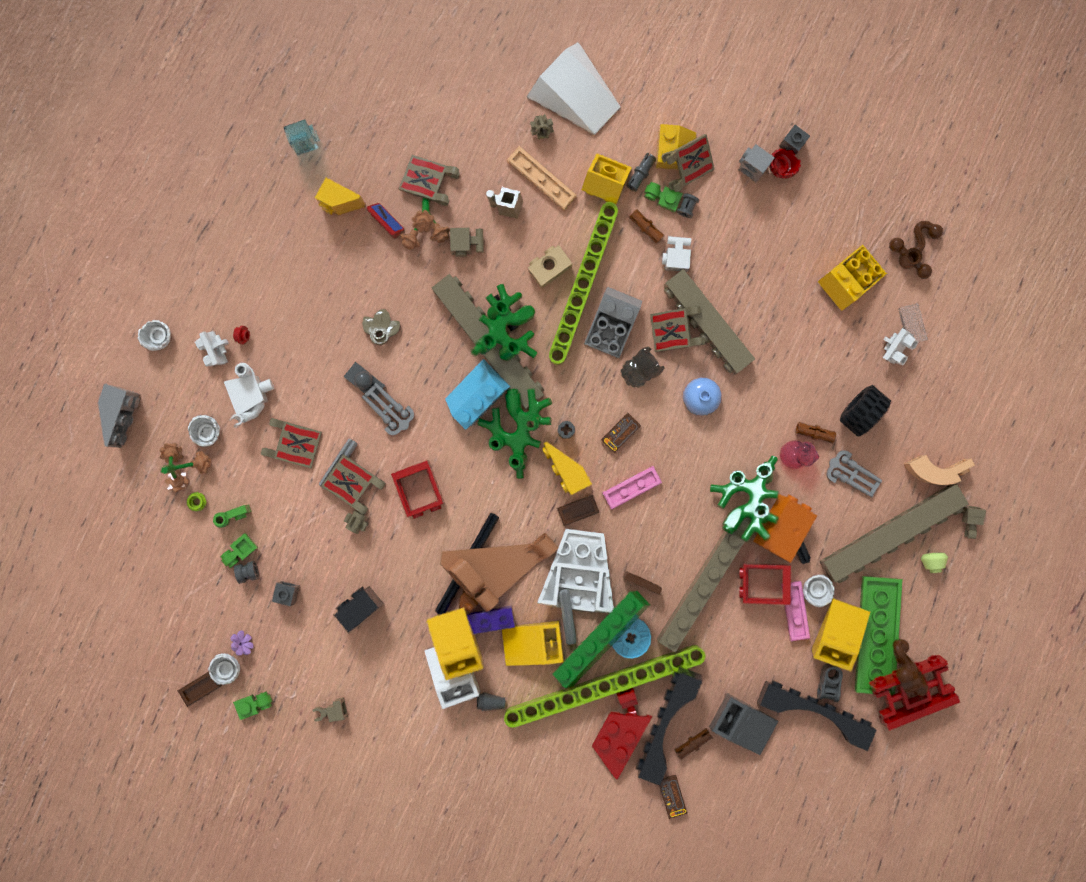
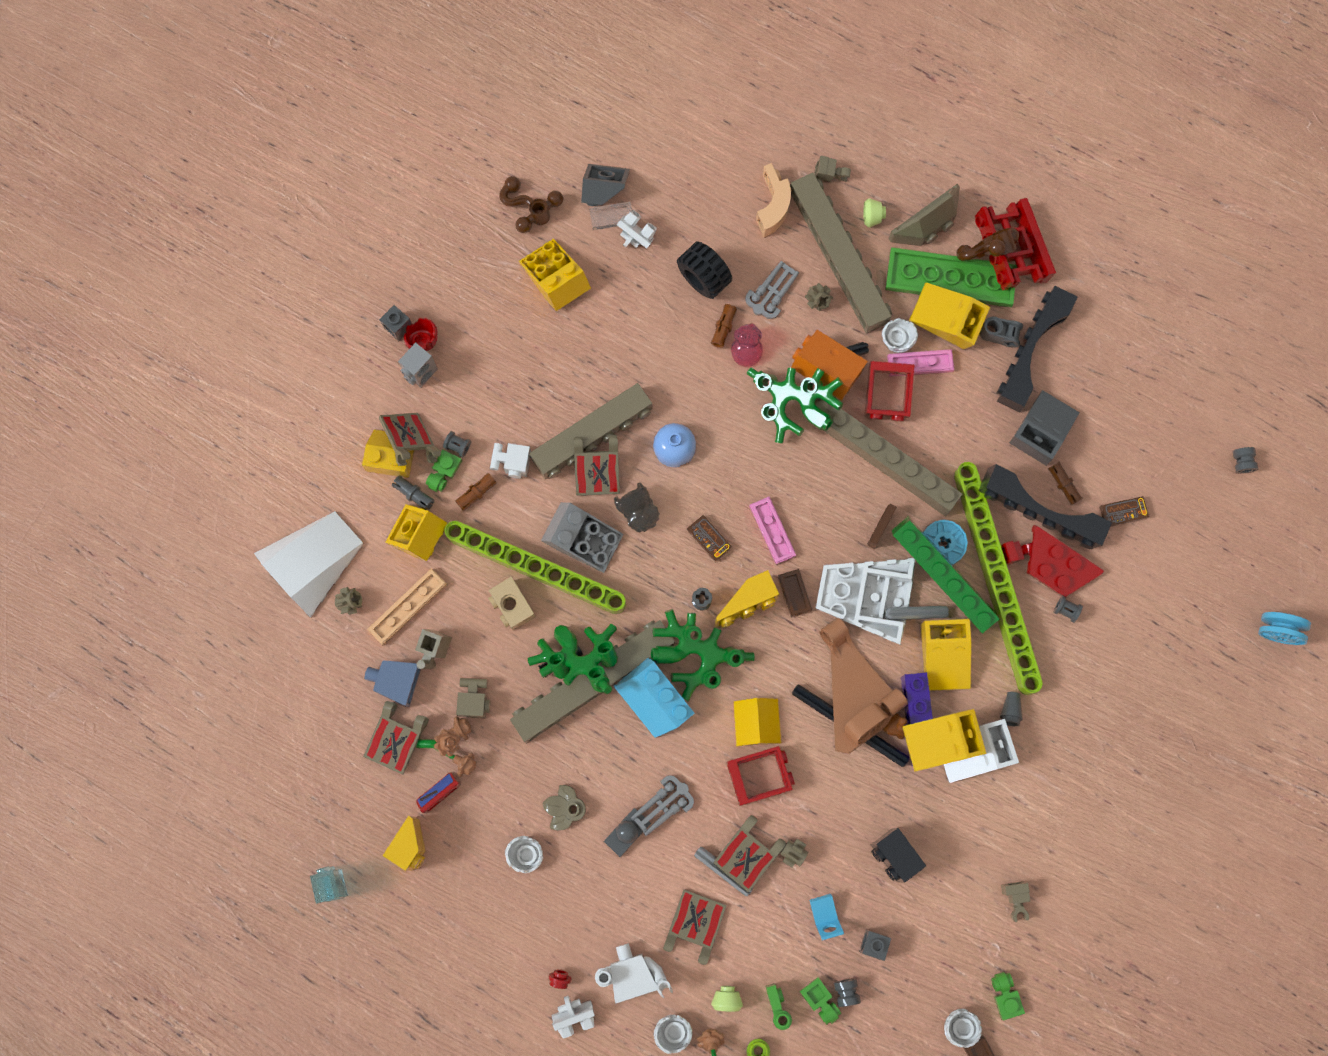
camera: 90 degrees left, 10 degrees down
(233, 473) = (727, 999): none -> yellowish green cone
(241, 643) = (933, 1005): lavender plant -> none
(307, 551) = (825, 916): none -> medium azure bracket
(339, 296) = (524, 854): none -> white hair
(464, 484) = (757, 722): none -> yellow slope
(475, 173) = (395, 680): none -> sand blue torso
(581, 748) = (1072, 615): none -> dark grey bush
(849, 516) = (818, 297): none -> dark tan gear
(931, 613) = (928, 221): none -> dark tan wedge
(942, 313) = (602, 183): none -> dark grey slope

